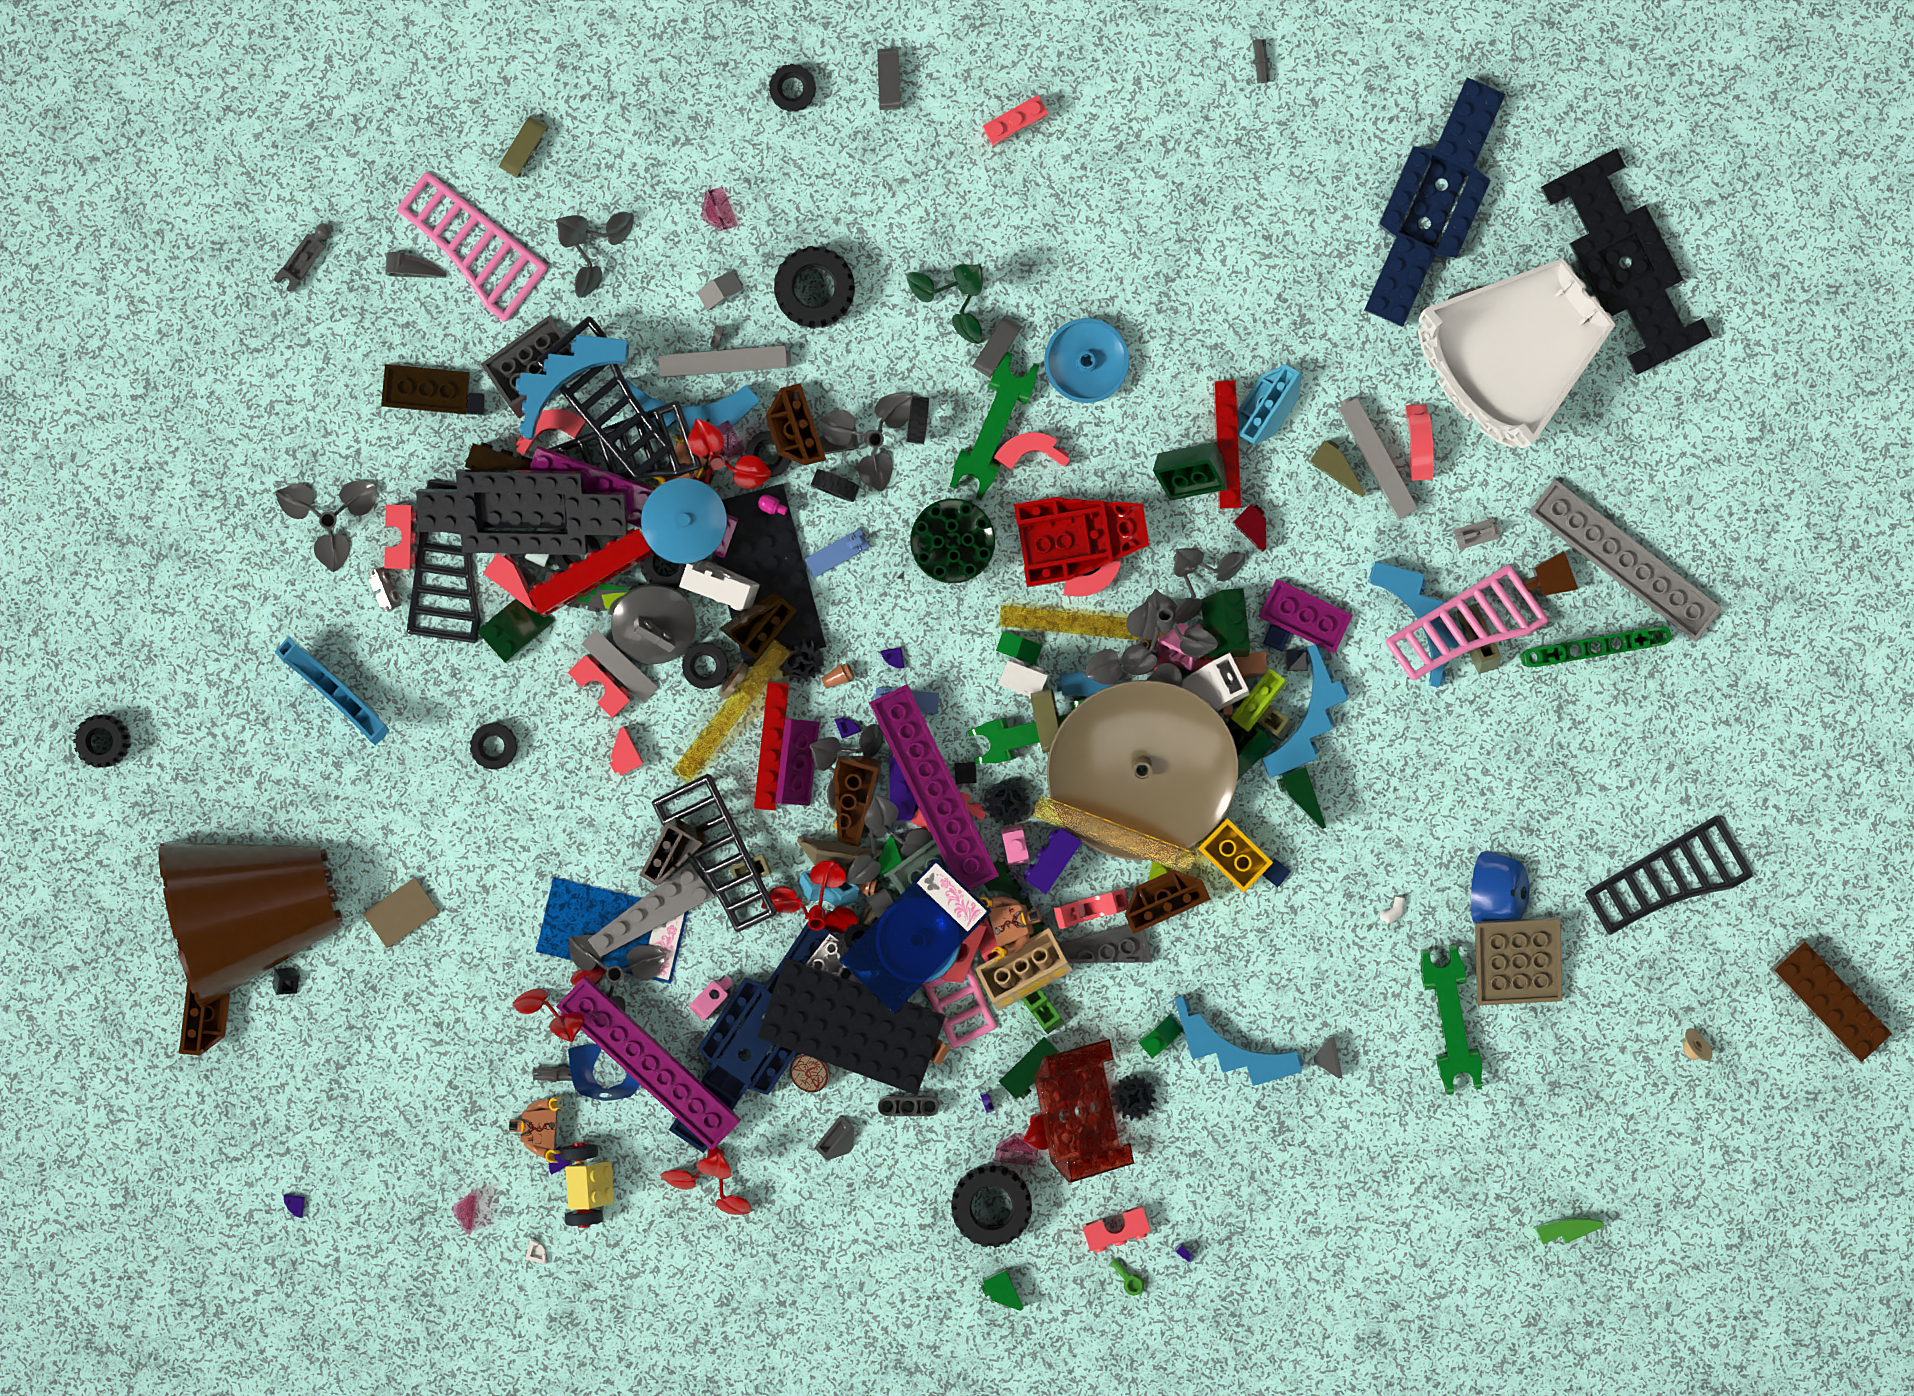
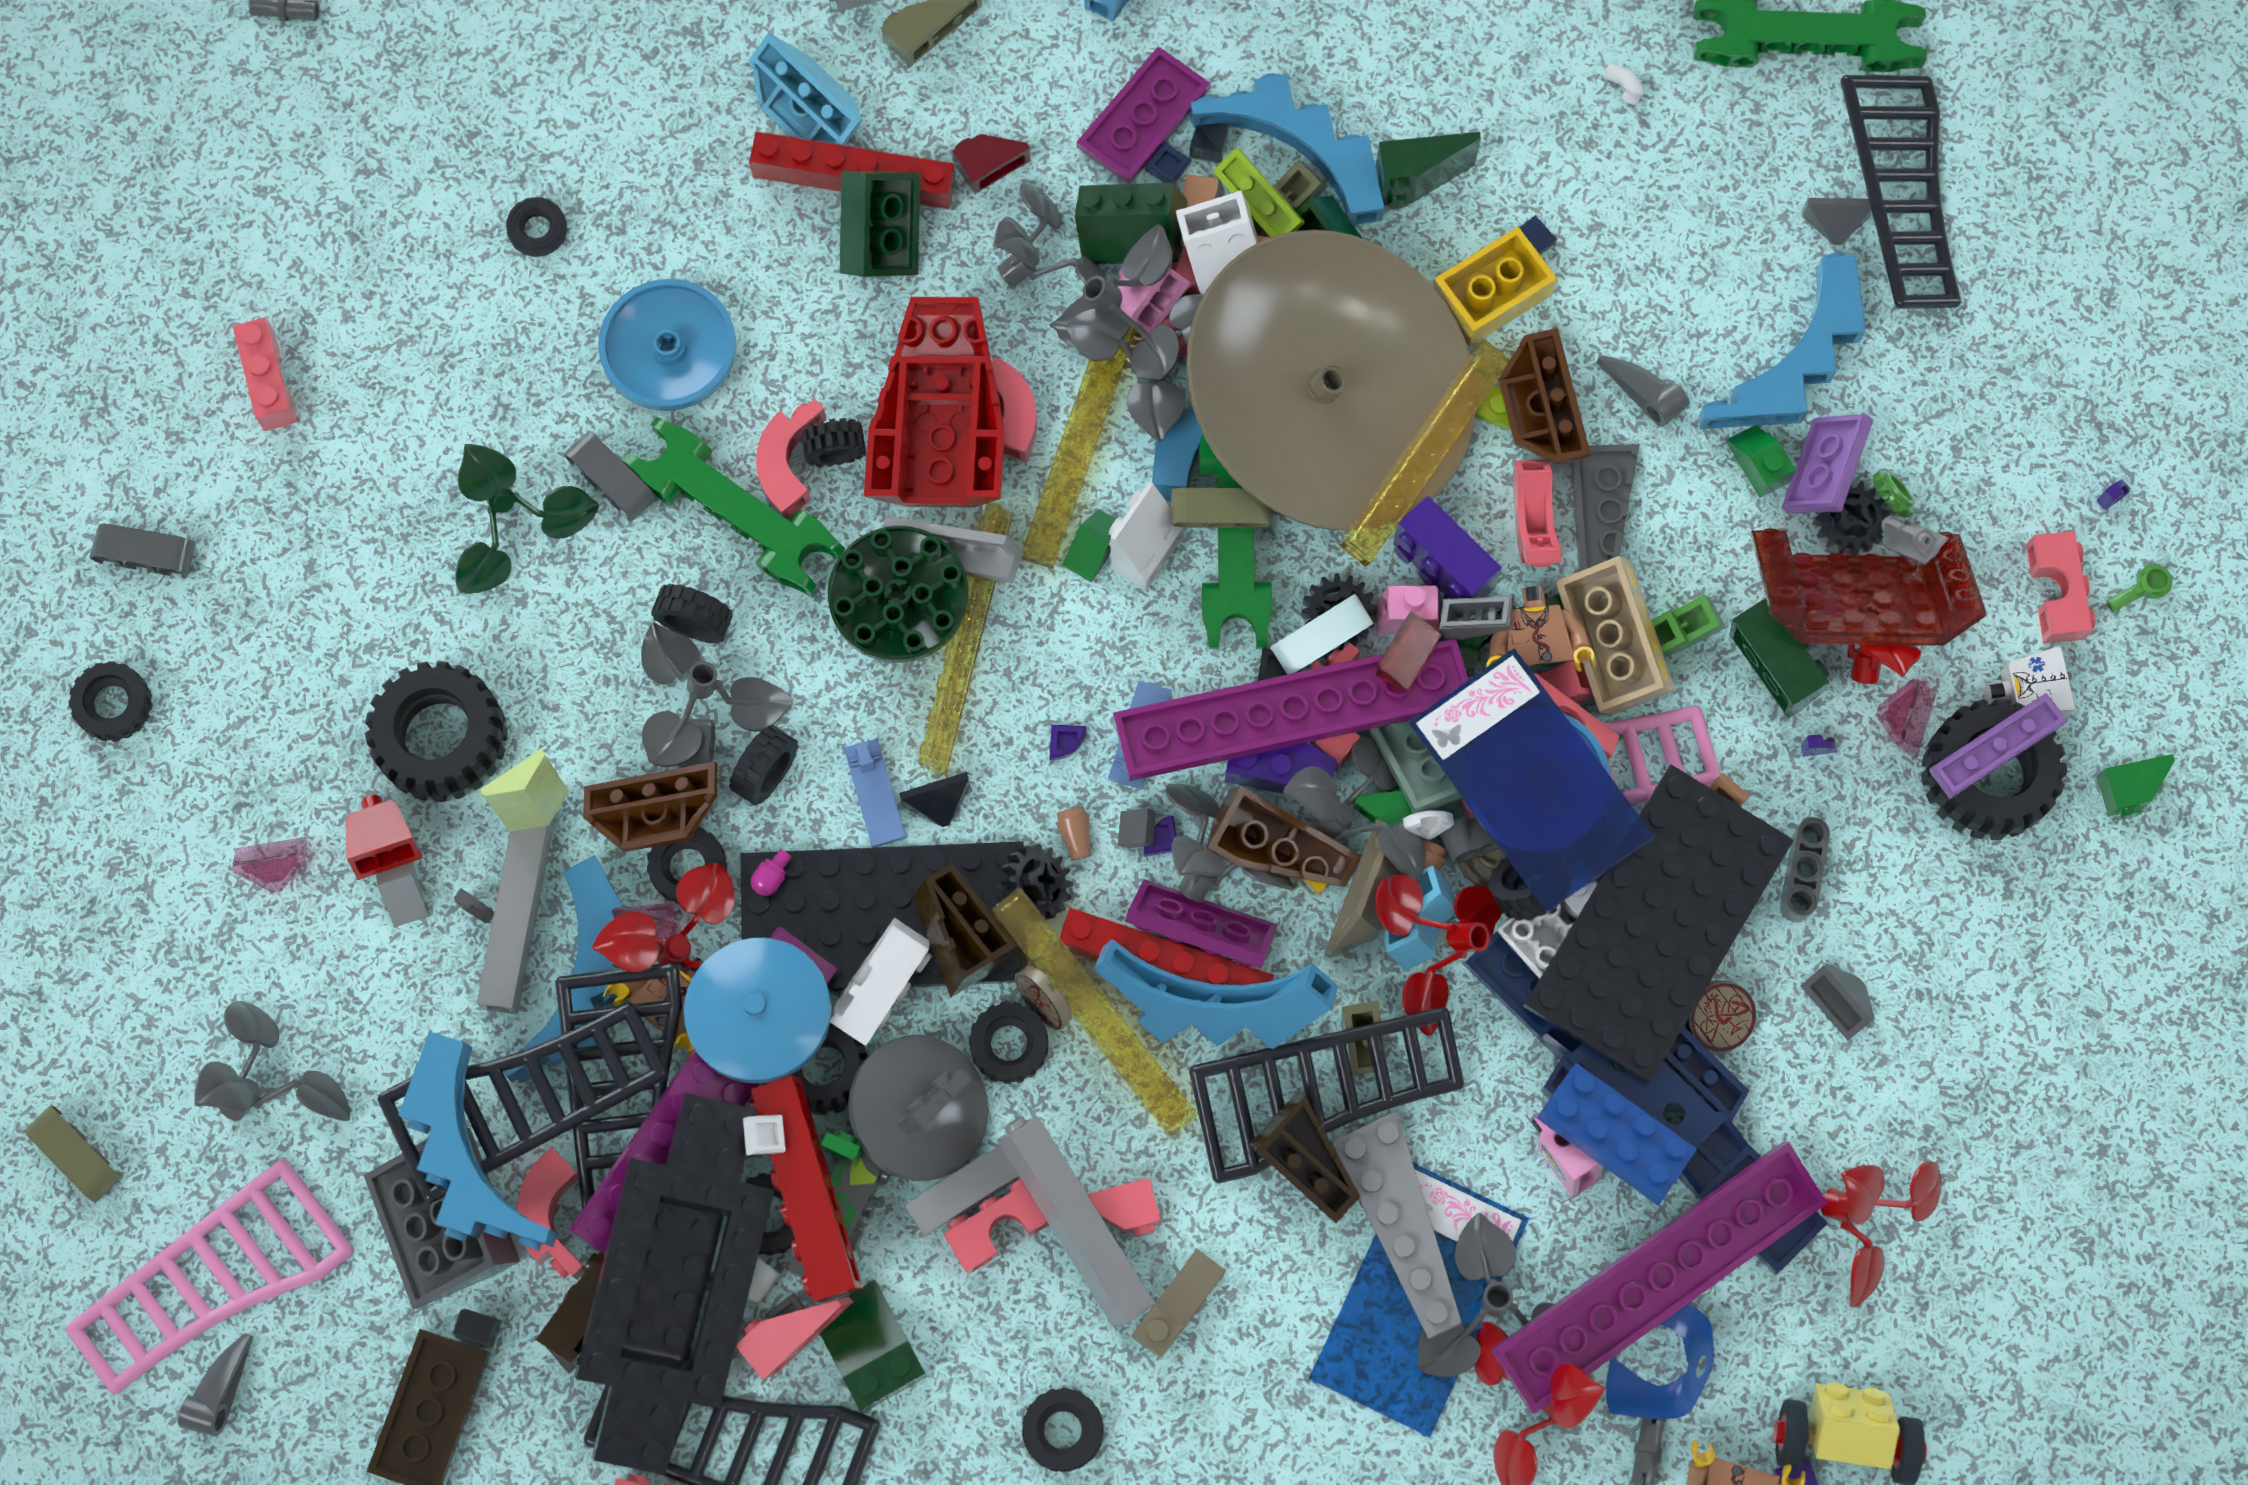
camera: 80 degrees left, 15 degrees down
(577, 795) = (1178, 1304): none -> dark tan slope
(608, 727) = (1075, 1220): none -> light grey brick
(612, 543) = (764, 1135): none -> white tile
(620, 587) = (842, 1146): none -> green plate
(722, 1023) = (1616, 1134): none -> blue plate
(743, 271) = (378, 838): none -> torso
(745, 783) = (1218, 1011): none -> dark azure arch
(776, 359) = (527, 793): none -> yellowish green slope
(839, 592) = (937, 800): none -> black slope
(848, 711) = (1136, 828): none -> dark grey tile
(883, 881) = (1428, 823): none -> white tile
(924, 584) = (960, 659): none -> clear yellow plate
(981, 849) = (1407, 652): none -> clear red slope
(985, 796) = (1322, 635): none -> light aqua beam
(989, 578) = (980, 552): none -> light grey fence
(999, 1204) = (1998, 745): none -> medium lavender tile
(1012, 869) = (1465, 607): none -> dark grey slope
(1045, 477) = (833, 442): none -> black tyre
(1050, 1222) = (2031, 678): none -> white torso
(1121, 1135) = (1911, 539): none -> light grey hinge
(1149, 245) = (531, 208): none -> black tyre
(1153, 1120) = (1894, 493): none -> bright green gear
(1162, 1077) = (1827, 464): none -> medium lavender tile
(1191, 960) = (1653, 395): none -> dark grey piece
(1370, 1109) = (1929, 174): none -> black bar

